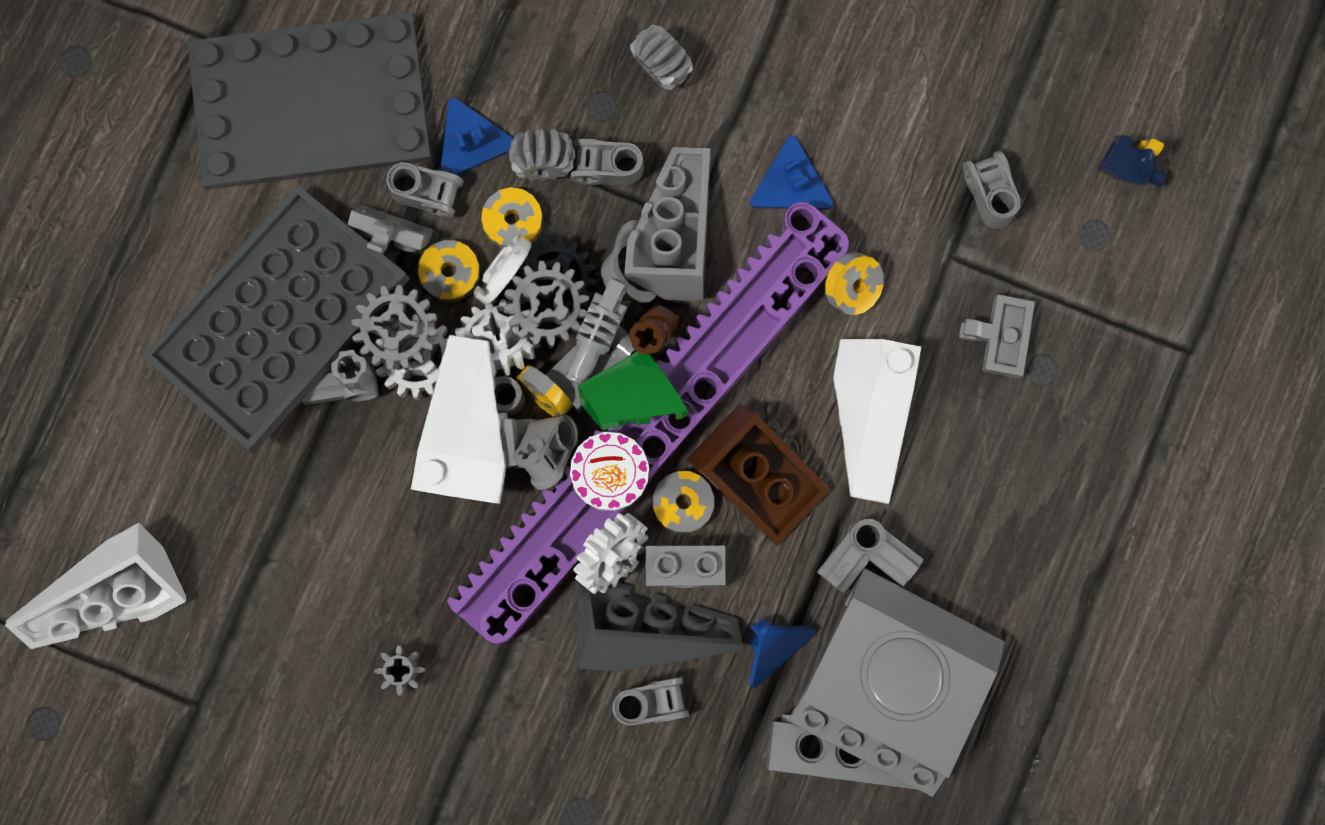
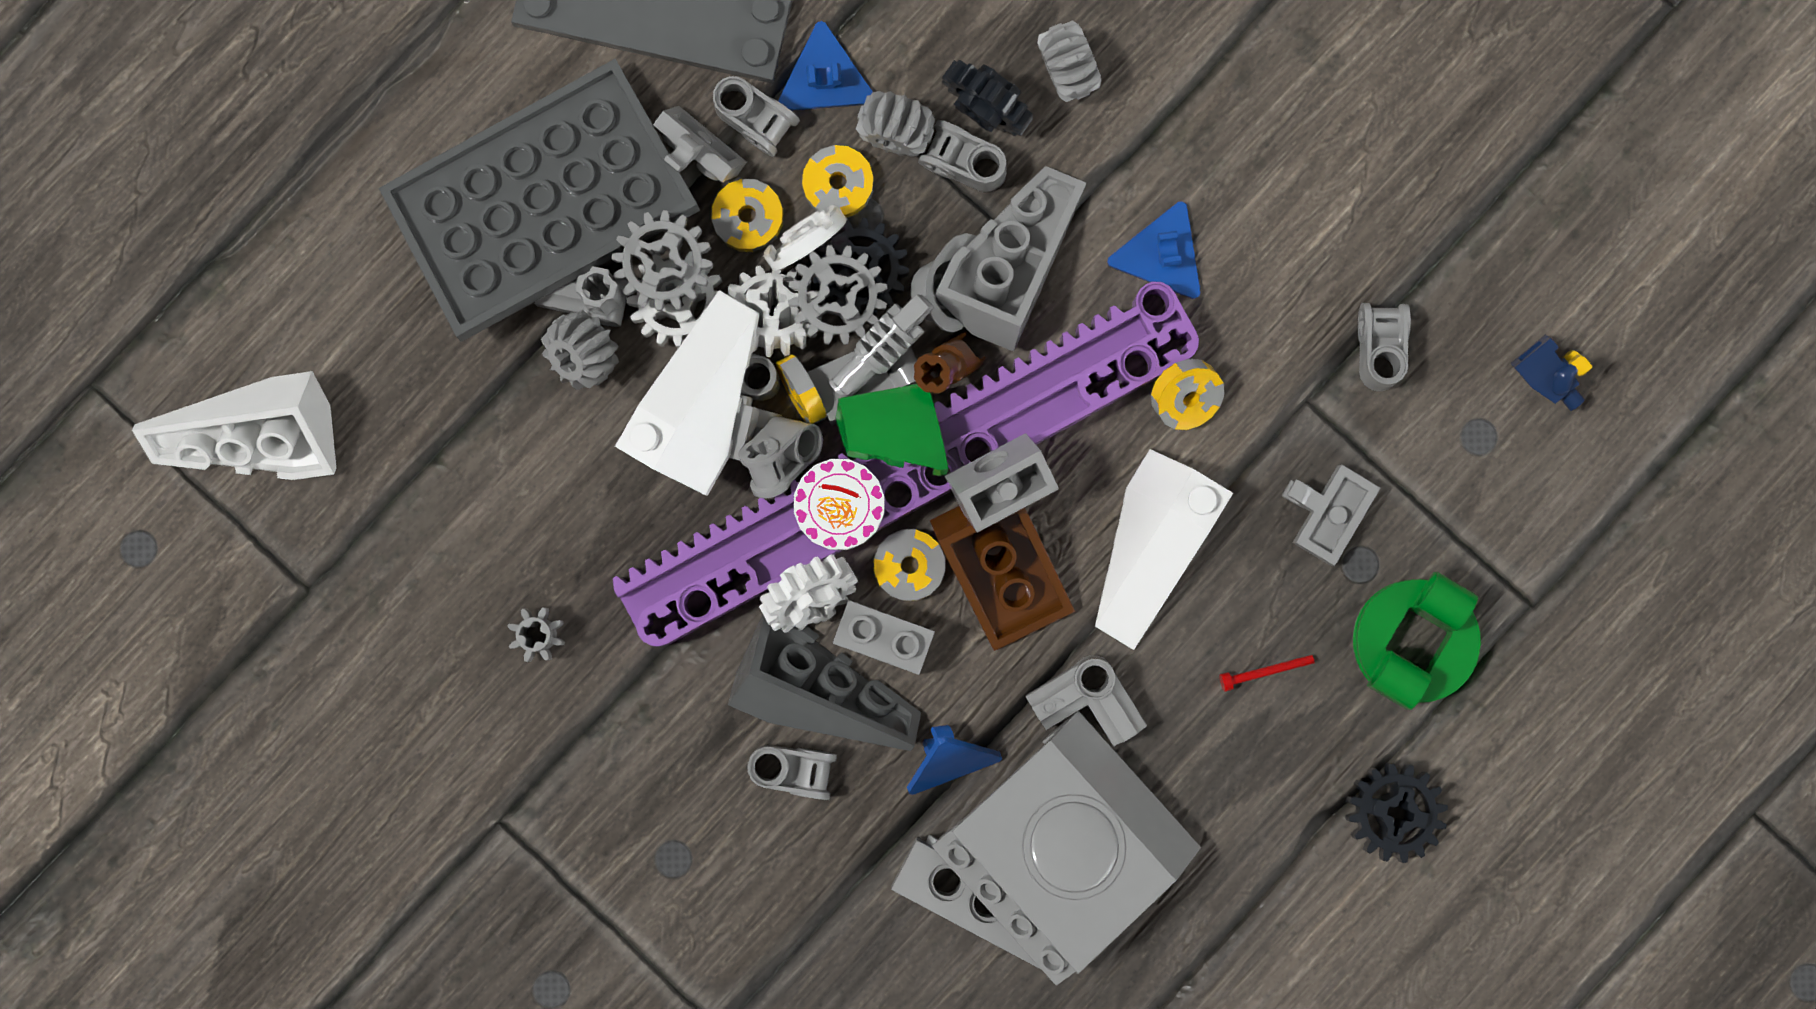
camera: 25 degrees right, 5 degrees up
(353, 425) = (580, 350): none -> light grey gear
(607, 108) = (987, 98): none -> black gear
(734, 404) = (1001, 482): none -> light grey brick
(974, 500) = (1227, 681): none -> red piece
(1119, 375) = (1442, 604): none -> green piece
(1149, 570) = (1392, 830): none -> black gear

